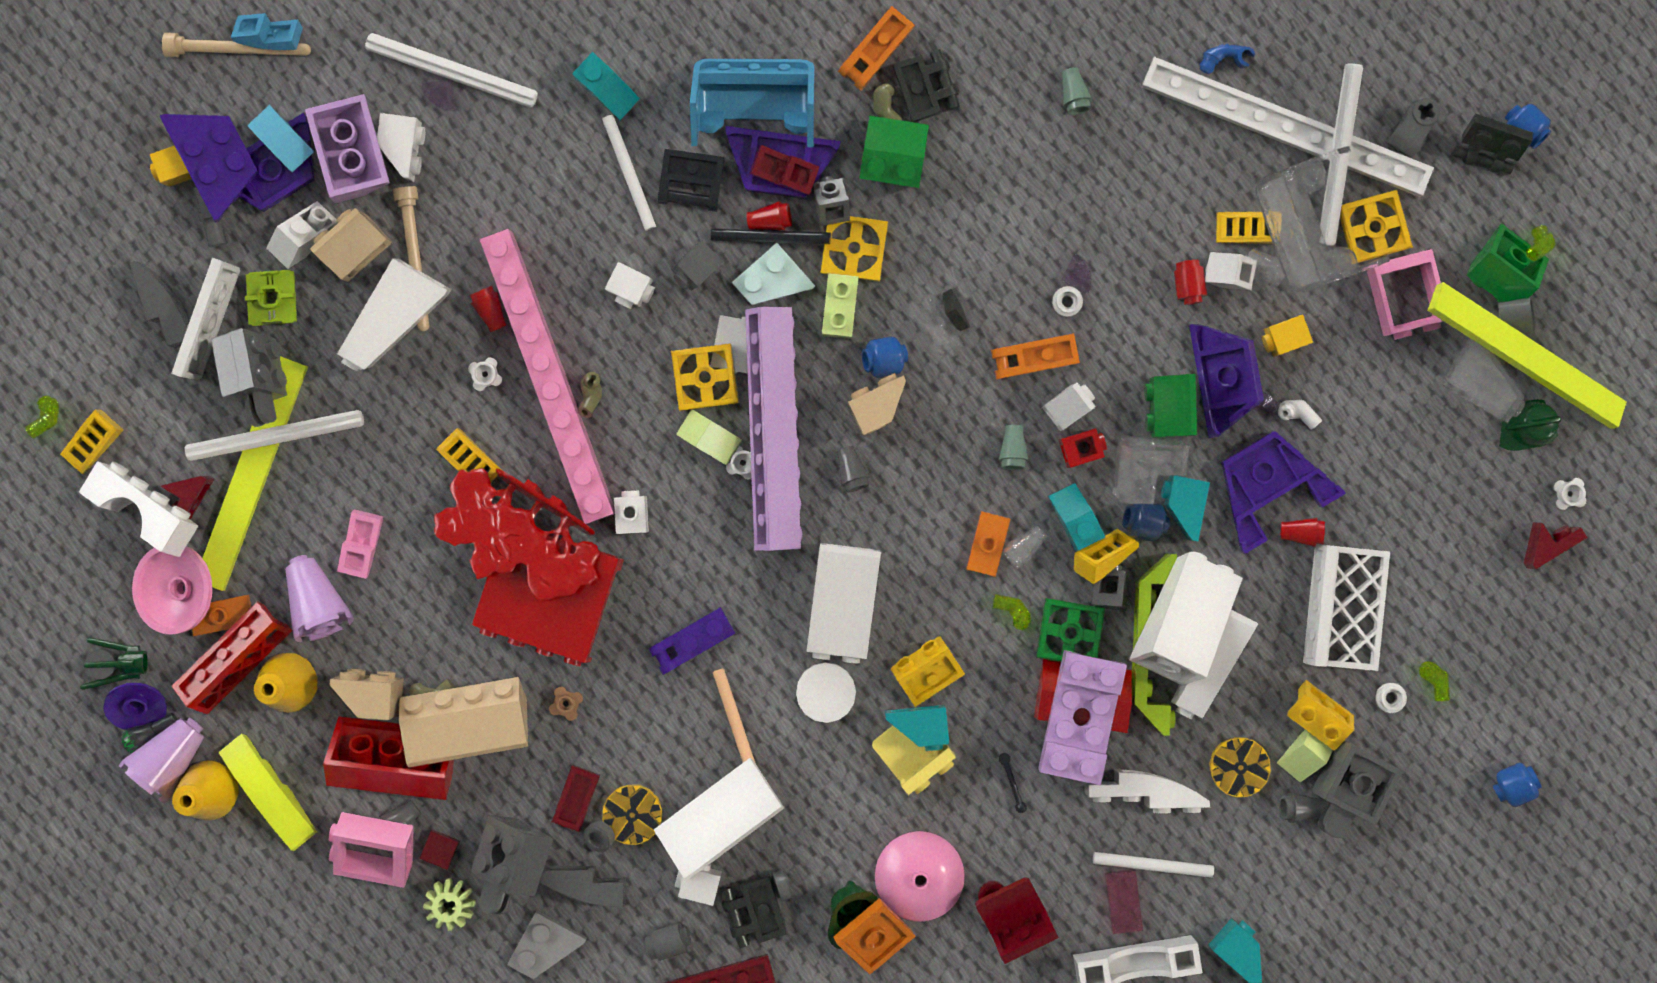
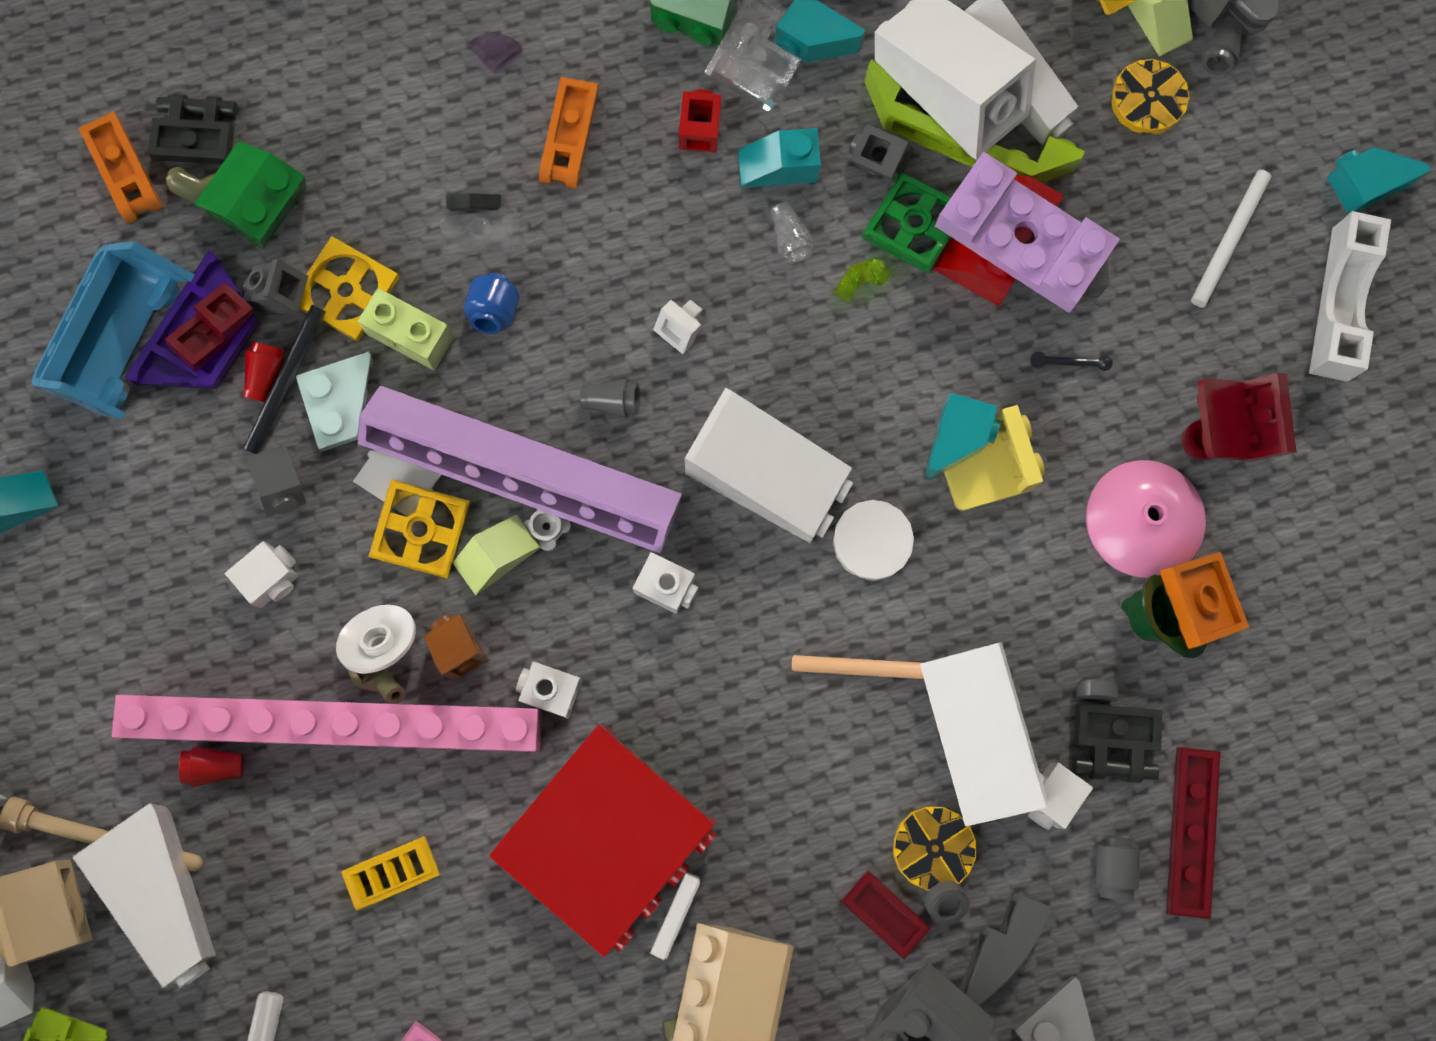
camera: 70 degrees left, 10 degrees down
(477, 370) = (280, 812): white plate -> none
(510, 537) = (509, 856): red plant -> none
(524, 660) = (675, 916): none -> white tile
(569, 711) = (745, 876): medium nougat plate -> none
(619, 371) = (375, 639): none -> white dish
(629, 172) = (126, 520): white bar -> none
(633, 437) = (454, 647): none -> dark orange slope
(693, 640) = (742, 679): dark purple plate -> none
(694, 170) = (159, 441): black plate -> none
(735, 563) = (665, 584): none -> white brick
(876, 407) = (546, 331): tan slope -> none
(923, 495) = (679, 324): none -> white tile
(927, 671) = (895, 405): yellow bracket -> none
(988, 543) = (769, 275): orange plate -> none
(1013, 450) = (669, 200): sand green cone -> none
(1070, 405) = (643, 109): white slope -> none
(1071, 292) = (520, 62): white plate -> none
(1094, 569) = (841, 147): yellow slope -> none
(1123, 901) = (1264, 289): clear pink tile -> none
(1145, 521) = (816, 84): dark blue head -> none
(1157, 790) = (1143, 202): white slope -> none

